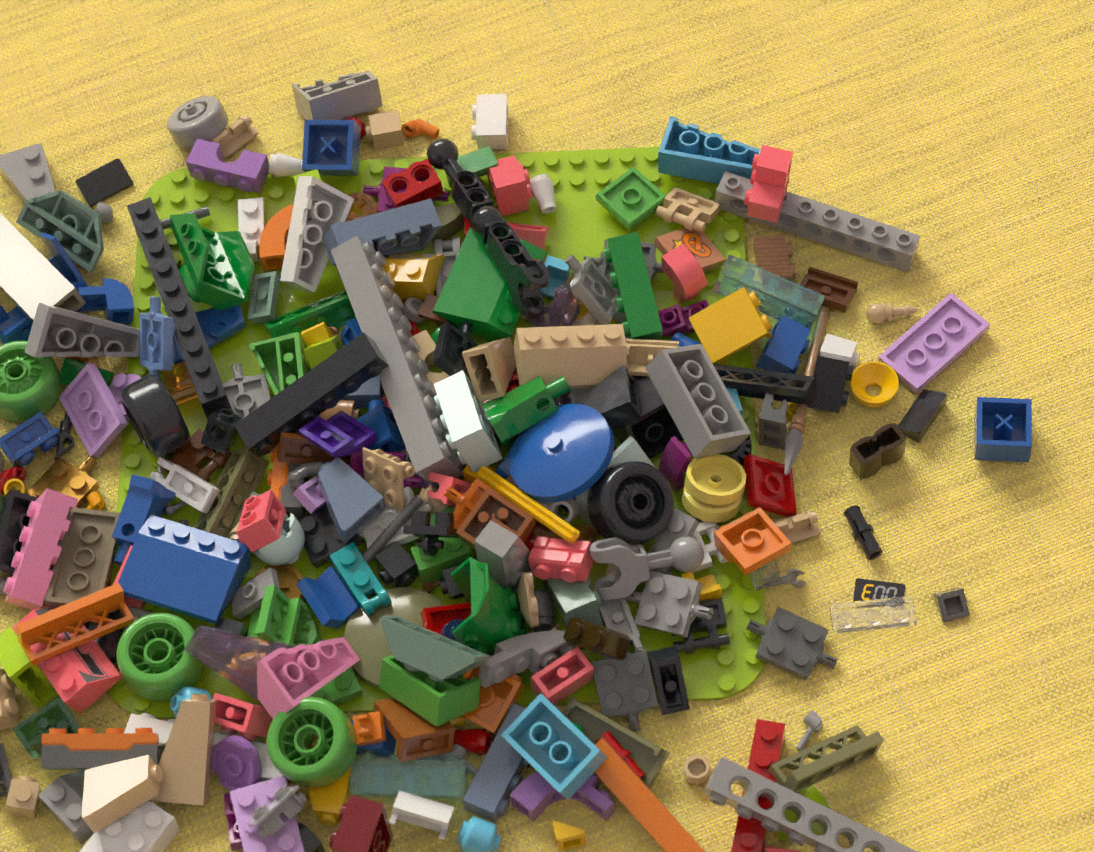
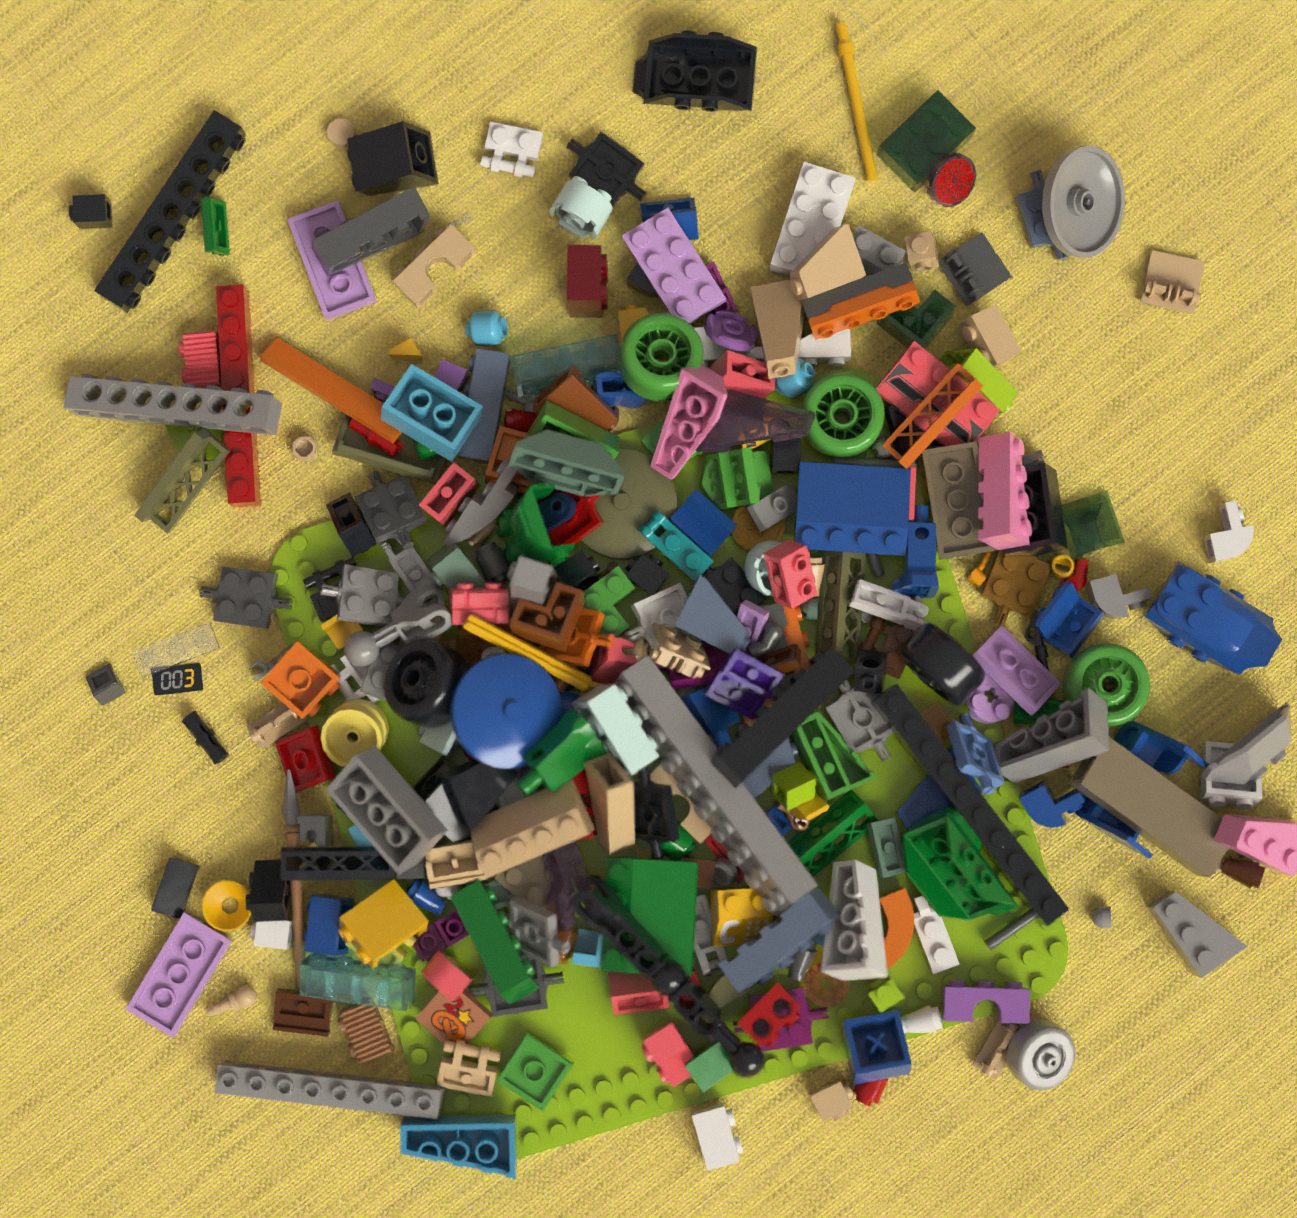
camera: 160 degrees right, 25 degrees up
(68, 220) = (1129, 876): sand green wedge -> none
(104, 182) = (1116, 956): black slope -> none
(268, 817) = (667, 294): light grey hinge -> none
(338, 99) = (895, 1123): light grey wedge -> none
(369, 728) = (612, 387): orange tile -> none
(392, 529) = (658, 603): dark grey bar -> none
(420, 127) = (796, 1115): orange arm -> none
(421, 527) = (614, 596): black hips -> none
(422, 813) = (543, 331): white hinge -> none
(527, 601) = (496, 544): tan dish -> none
(543, 192) = (630, 1054): white cone -> none
(597, 638) = (418, 530): dark brown brick -> none
(675, 462) = (399, 751): magenta slope -> none
(769, 182) = (379, 1100): coral brick -> none
(814, 724) = (207, 524): light grey hand -> none
(879, 450) = (202, 832): dark brown brick -> none
(1003, 429) = (87, 882): blue brick -> none

